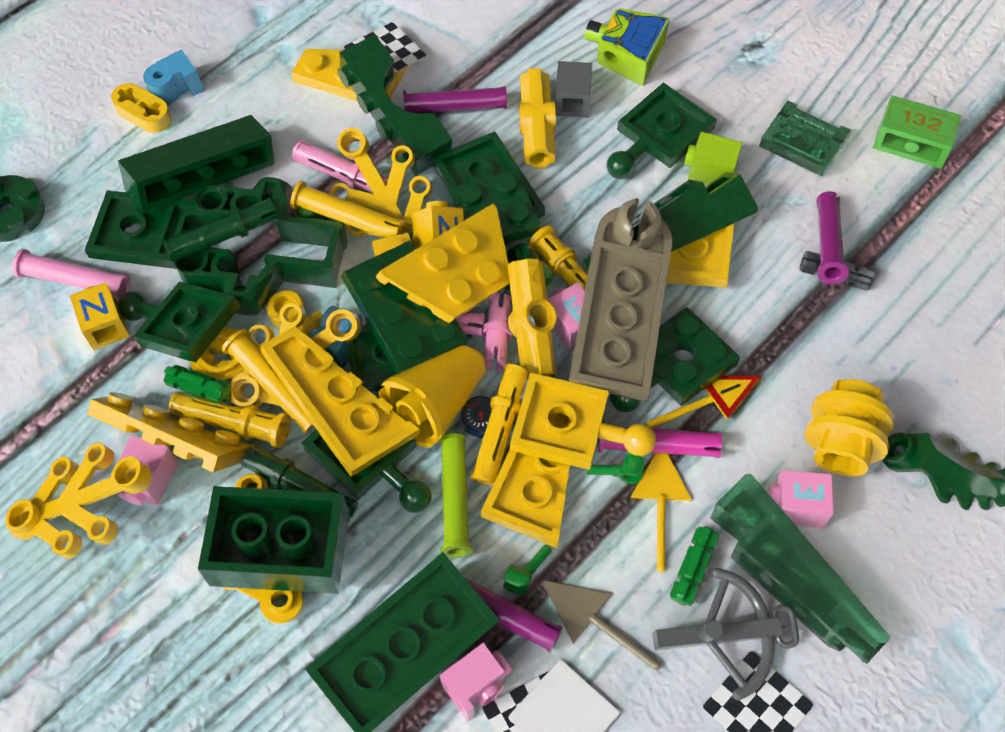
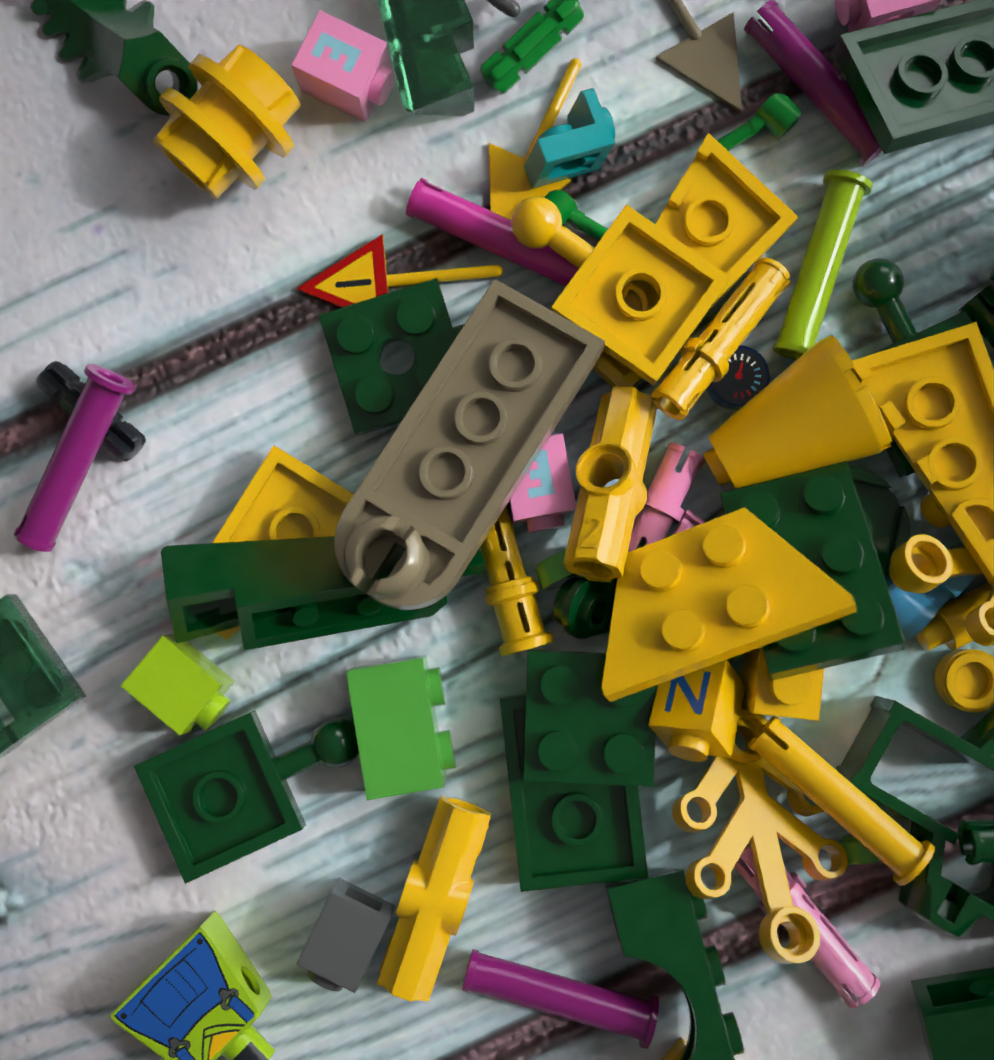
camera: 160 degrees left, 25 degrees up
(591, 179) = (399, 727): none -> bright green brick
(643, 496) = (575, 146): none -> teal bracket

